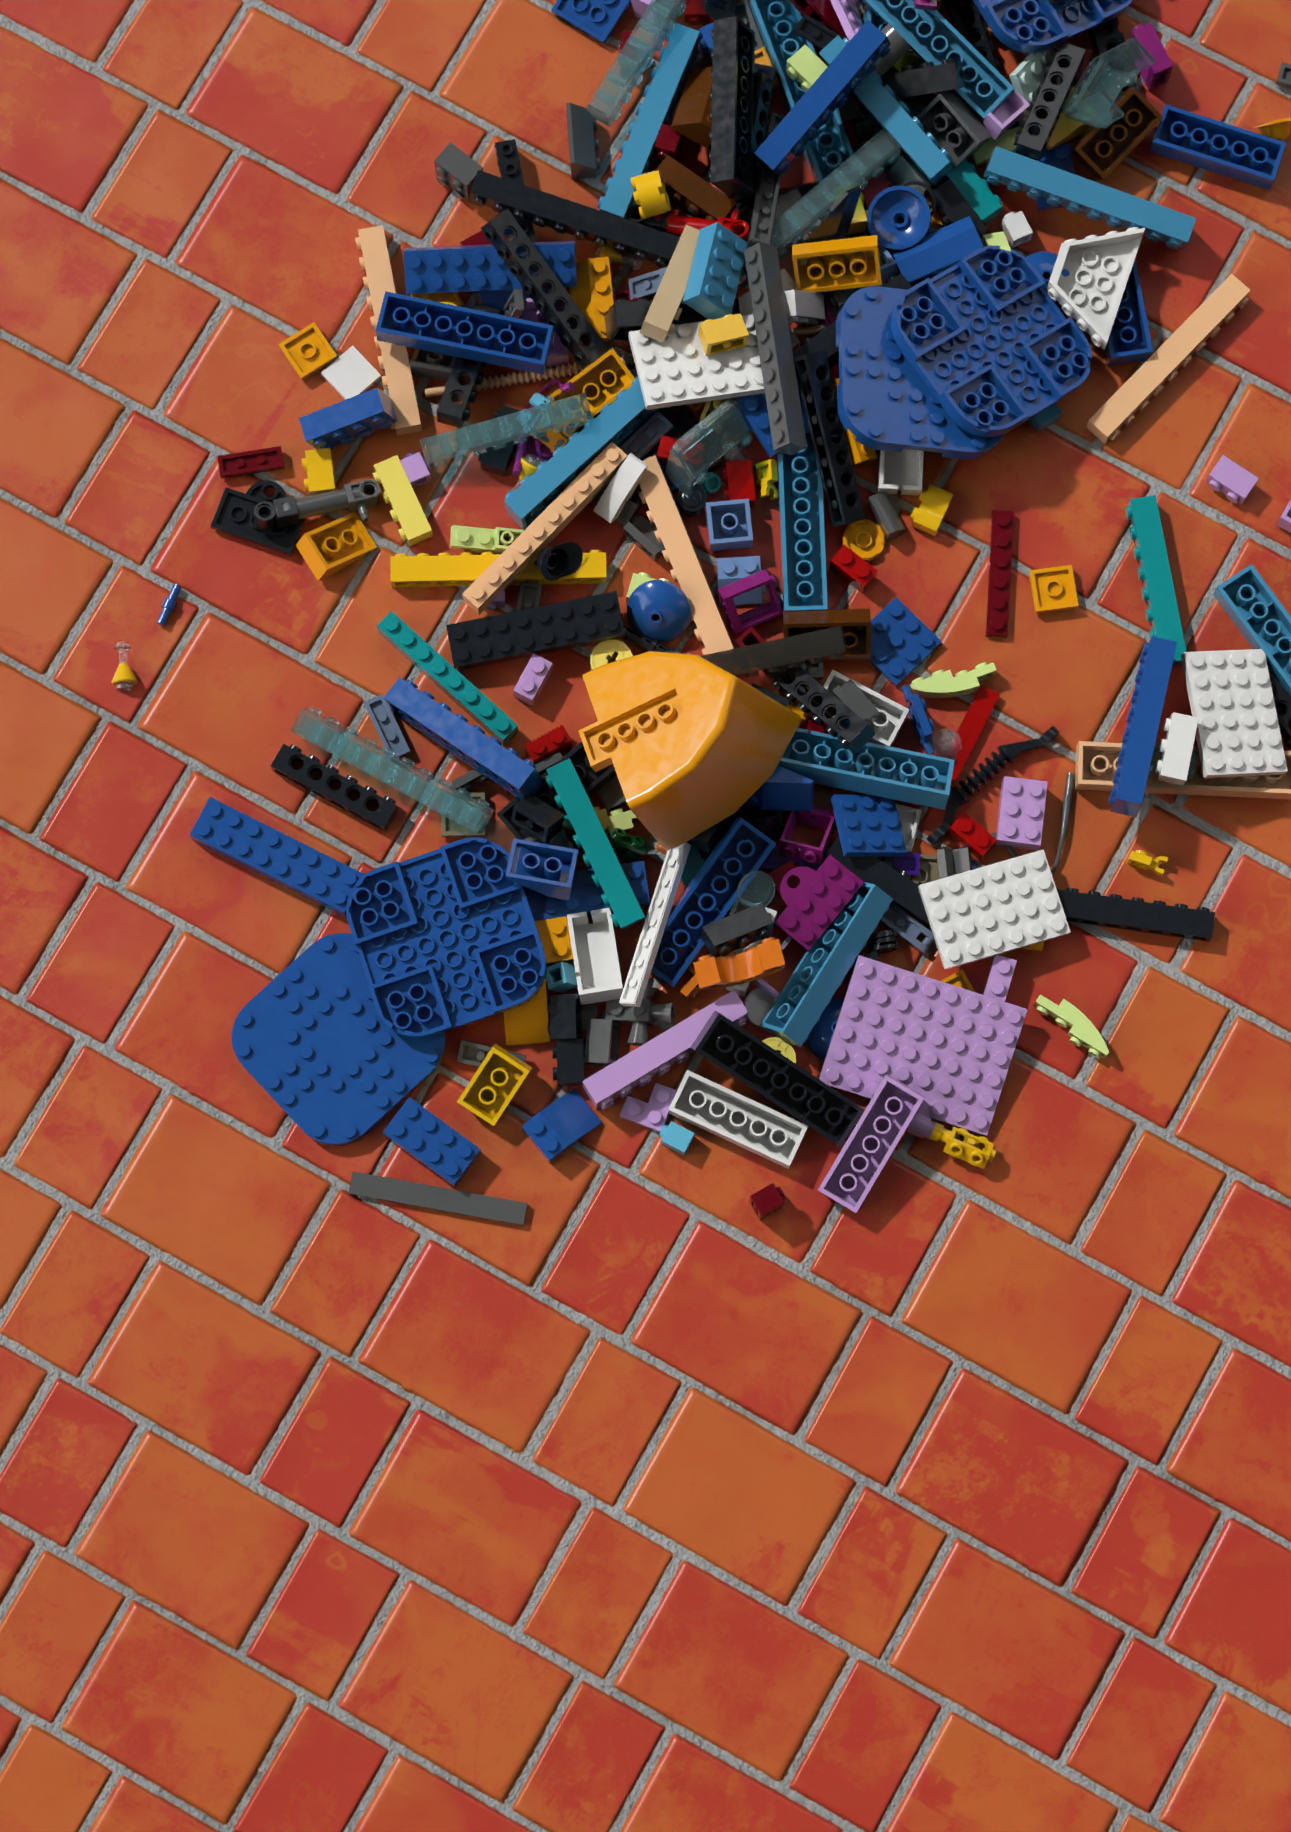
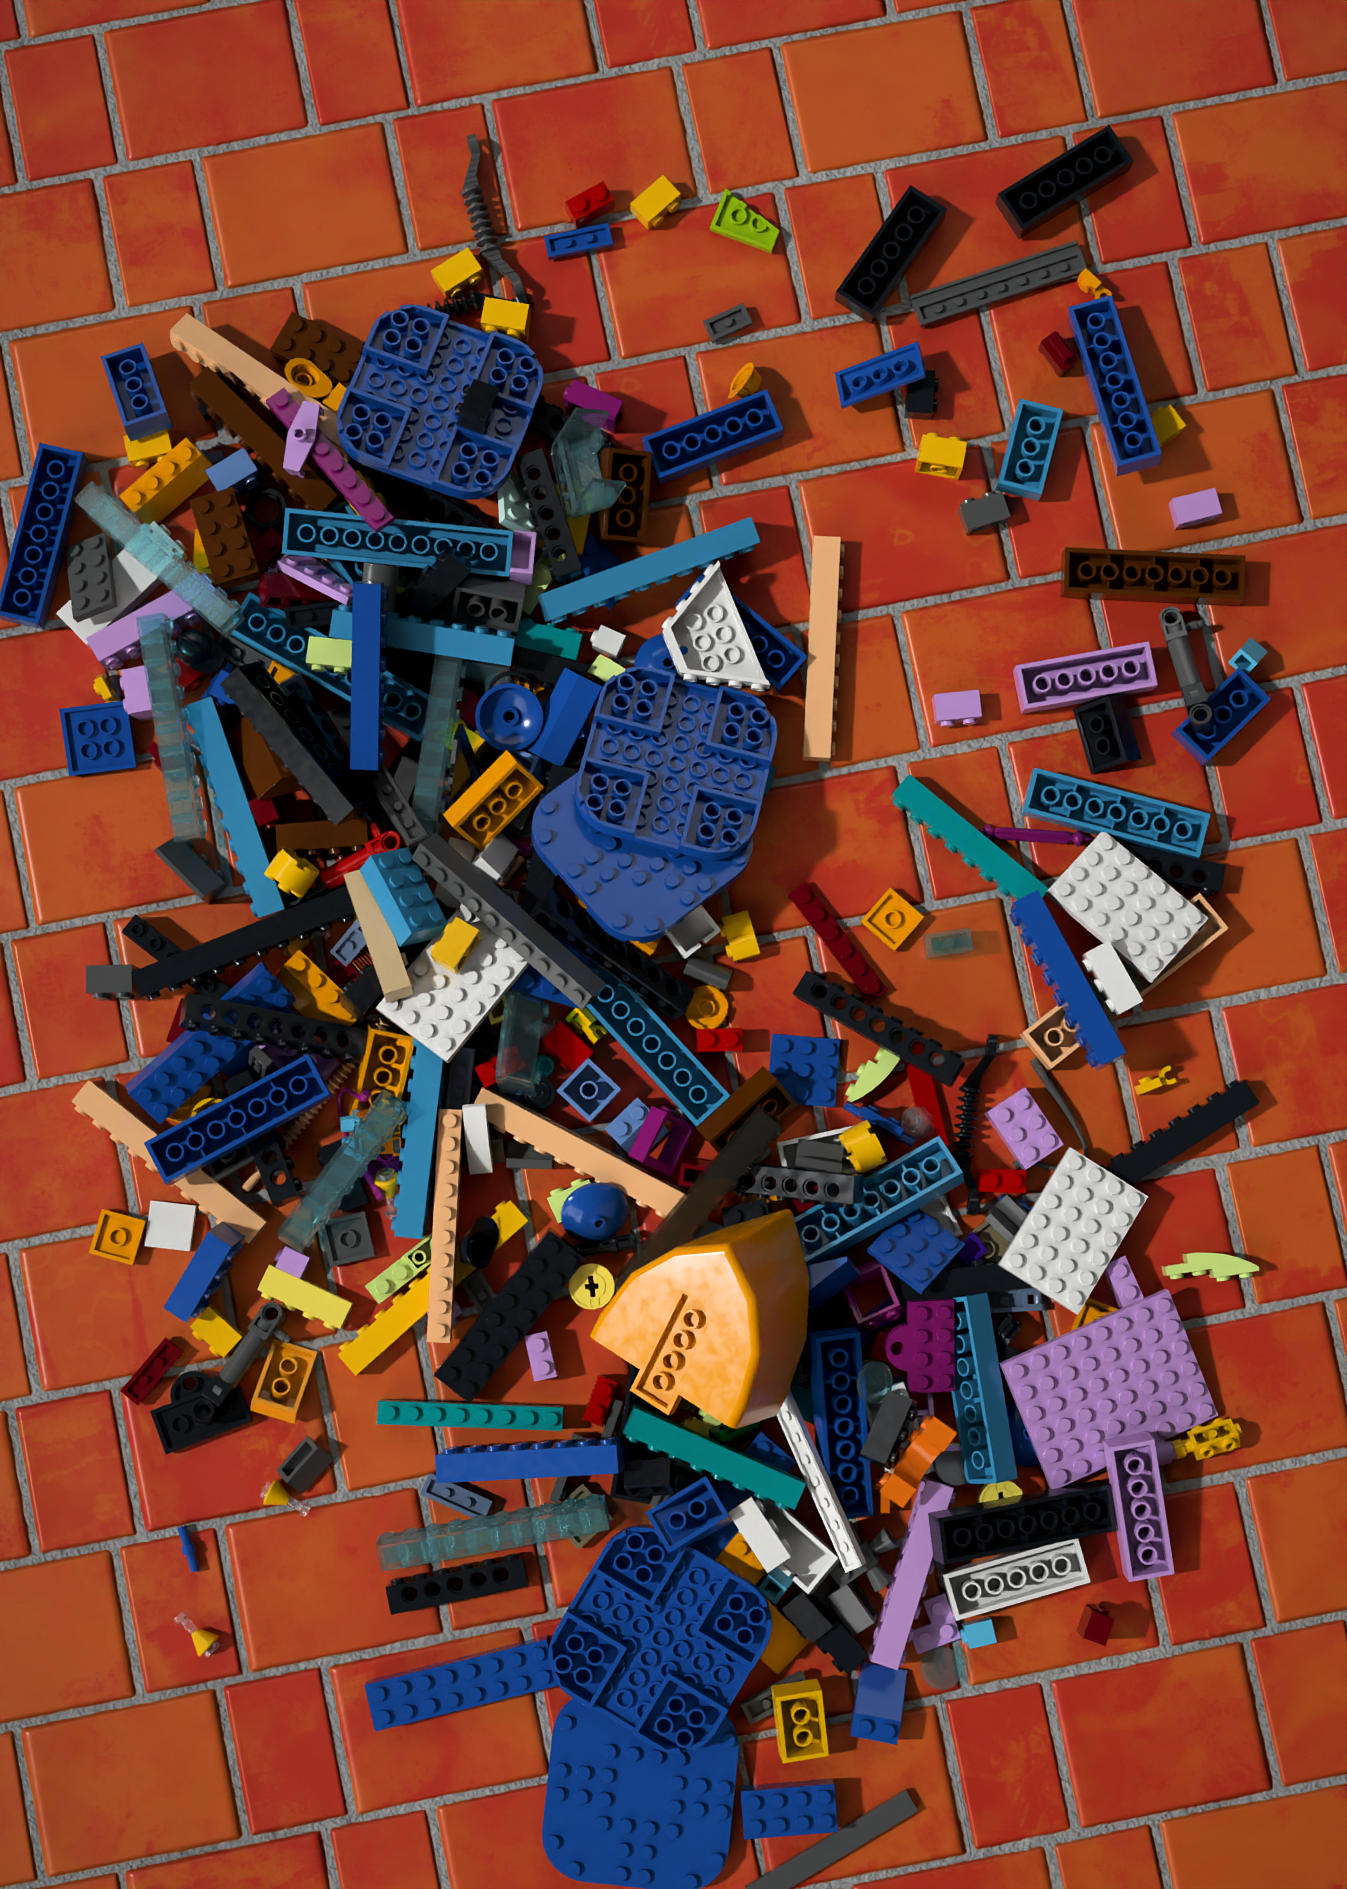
camera: 40 degrees left, 5 degrees up
(262, 618) = (275, 1494): none -> piece
(300, 615) = (304, 1464): none -> dark grey brick
(467, 486) = (348, 1239): none -> dark grey plate
(581, 925) = (760, 1534): none -> white brick
(627, 1140) = (941, 1668): none -> clear light blue piece
(892, 718) = (864, 1147): none -> yellow brick
(998, 719) = (946, 1073): none -> black brick
(1079, 637) = (947, 943): none -> clear light blue brick
(1209, 615) = (1034, 835): none -> magenta wheel

